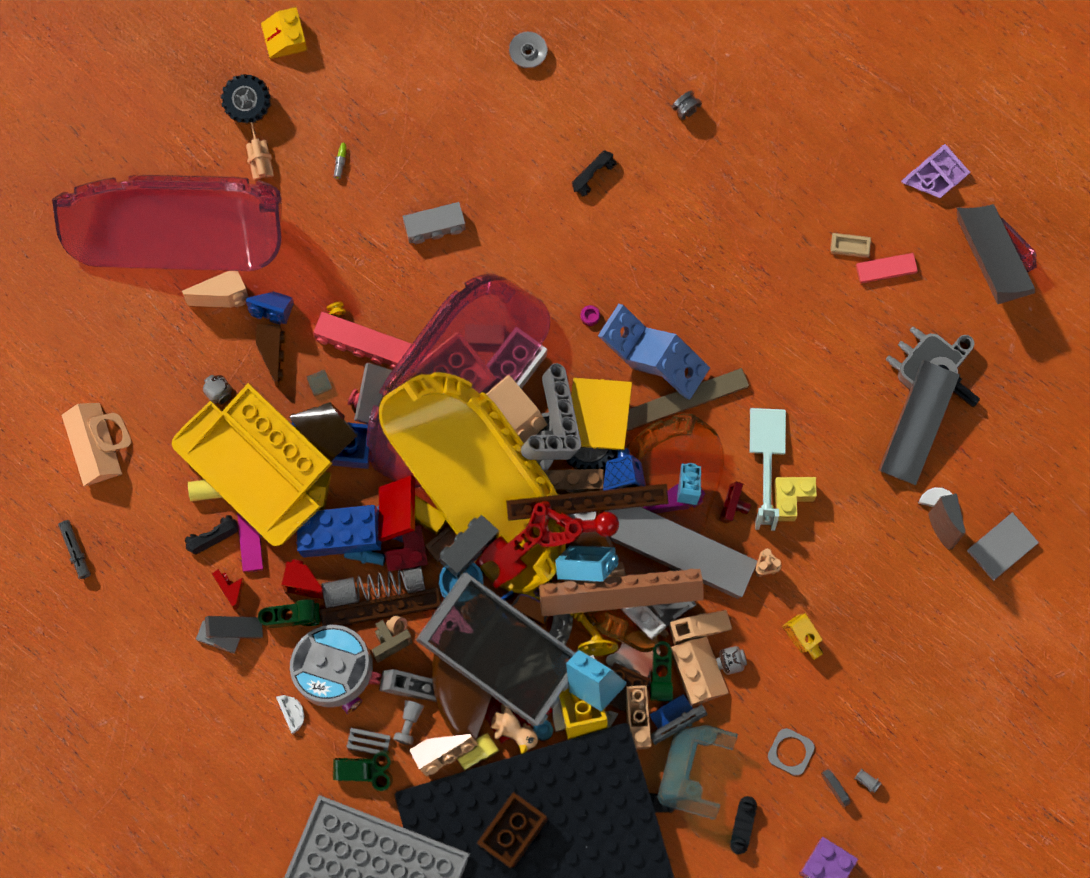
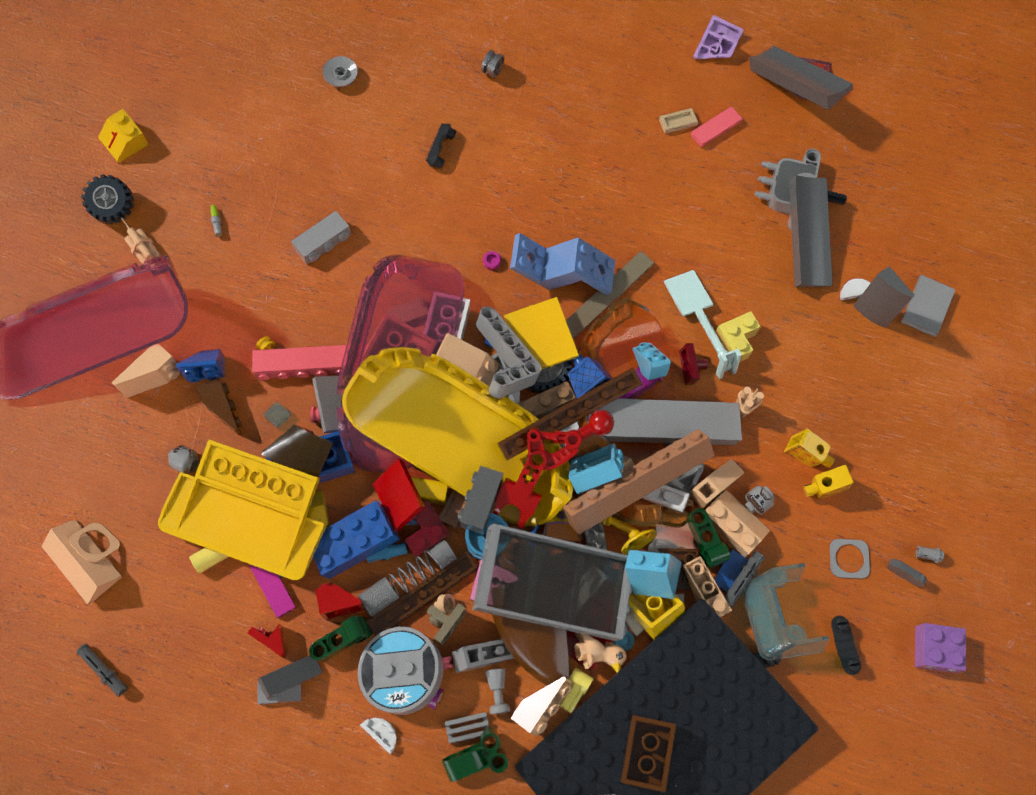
camera: 25 degrees left, 5 degrees down
(197, 544) = (244, 584): black piece -> none
(813, 674) = (837, 480): none -> yellow torso

